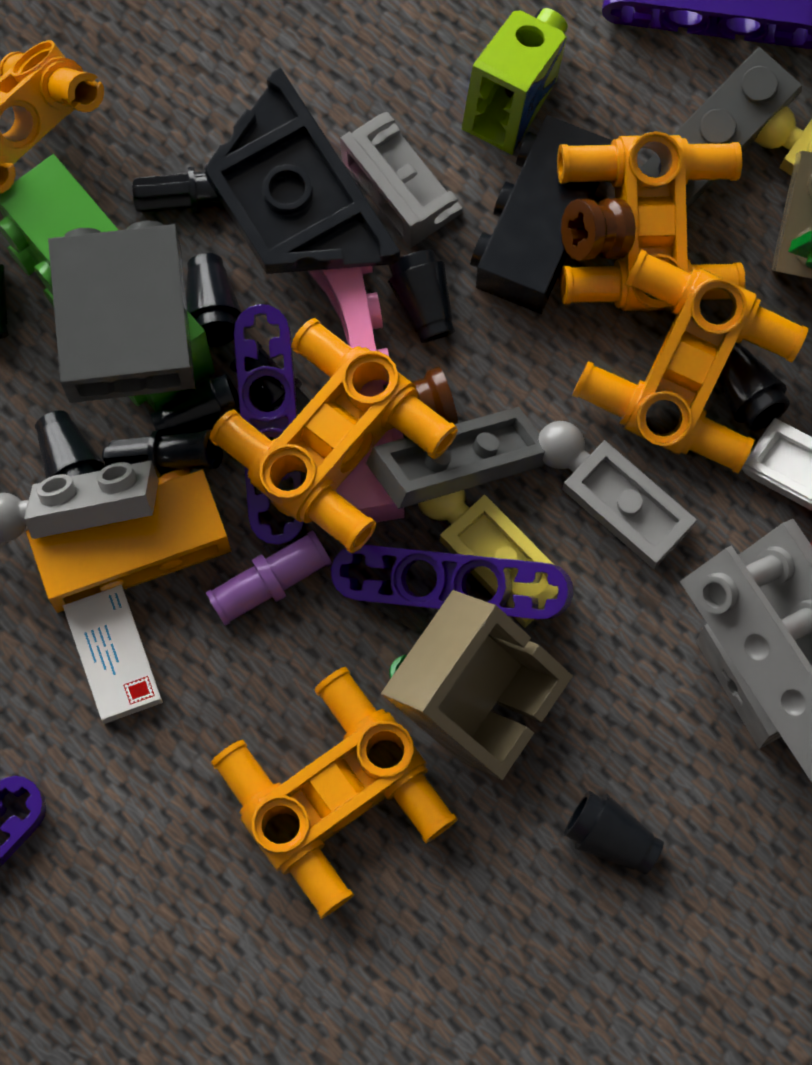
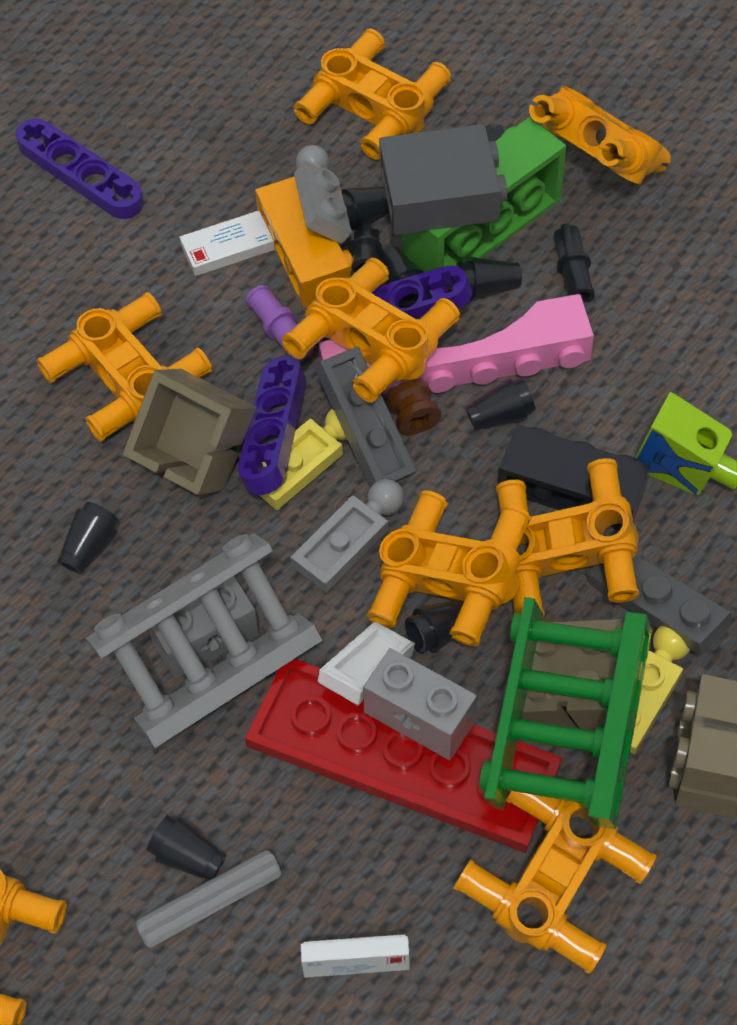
camera: 90 degrees right, 15 degrees down
(294, 191) = (563, 297): black wing -> none
(398, 179) = (594, 385): light grey hinge -> none
(598, 229) = (549, 492): reddish brown wheel -> none

